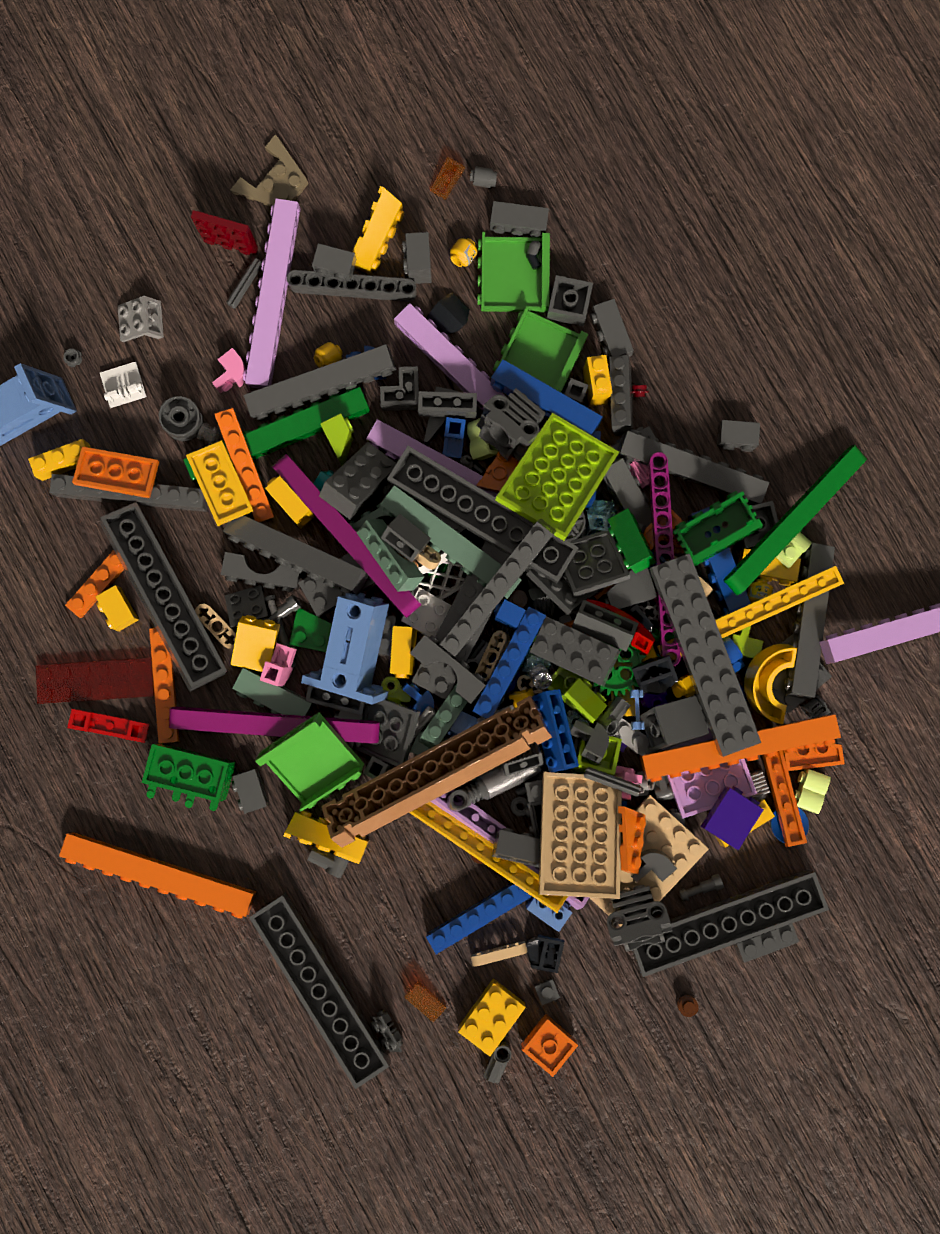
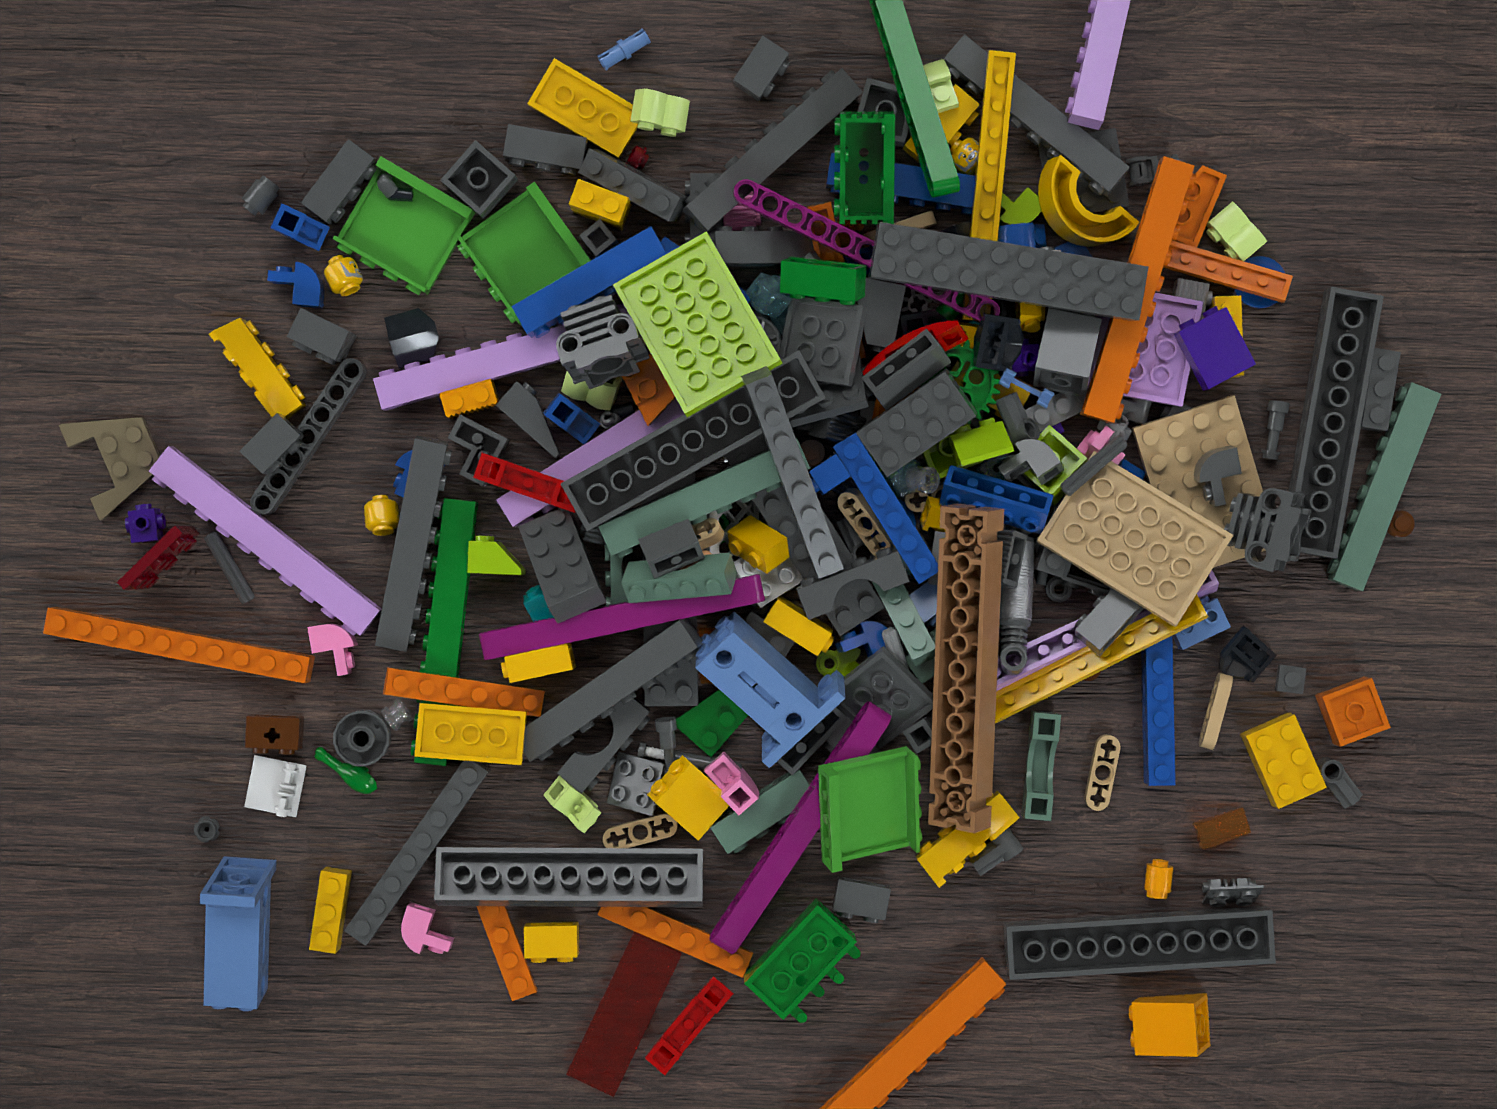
camera: 60 degrees left, 5 degrees up
(78, 520) = (416, 930): none -> bright pink brick
(115, 472) = (388, 852): orange plate -> none
(140, 318) = (204, 721): light grey bracket -> none
(154, 429) = (354, 776): none -> green piece
(163, 372) = (288, 726): none -> reddish brown brick
(179, 278) = (179, 644): none -> orange brick
(210, 577) = (573, 804): none -> yellowish green brick
(243, 214) = (136, 524): none -> dark purple brick
(277, 1042) = (1170, 1025): none -> light orange slope
(368, 978) = (1158, 879): none -> light orange brick
(396, 423) = (522, 481): none -> red slope
(400, 858) = (1038, 780): none -> sand green arch
(406, 912) = (1092, 790): none -> tan beam
(431, 369) = (469, 398): none -> light orange brick
(440, 596) = (758, 544): none -> yellow brick
(445, 233) = (307, 283): none -> blue brick
(447, 178) = (235, 241): clear orange slope -> none
(447, 404) = (529, 404): dark grey brick -> none
(478, 208) = (299, 227): none -> blue brick
(632, 831) = (1167, 476): orange wing -> none
(651, 342) = (584, 108): none -> yellow plate
(676, 386) = (659, 111): none -> yellowish green brick
(700, 345) = (623, 49): none -> medium blue pin
(706, 981) = (1383, 486): none -> sand green brick

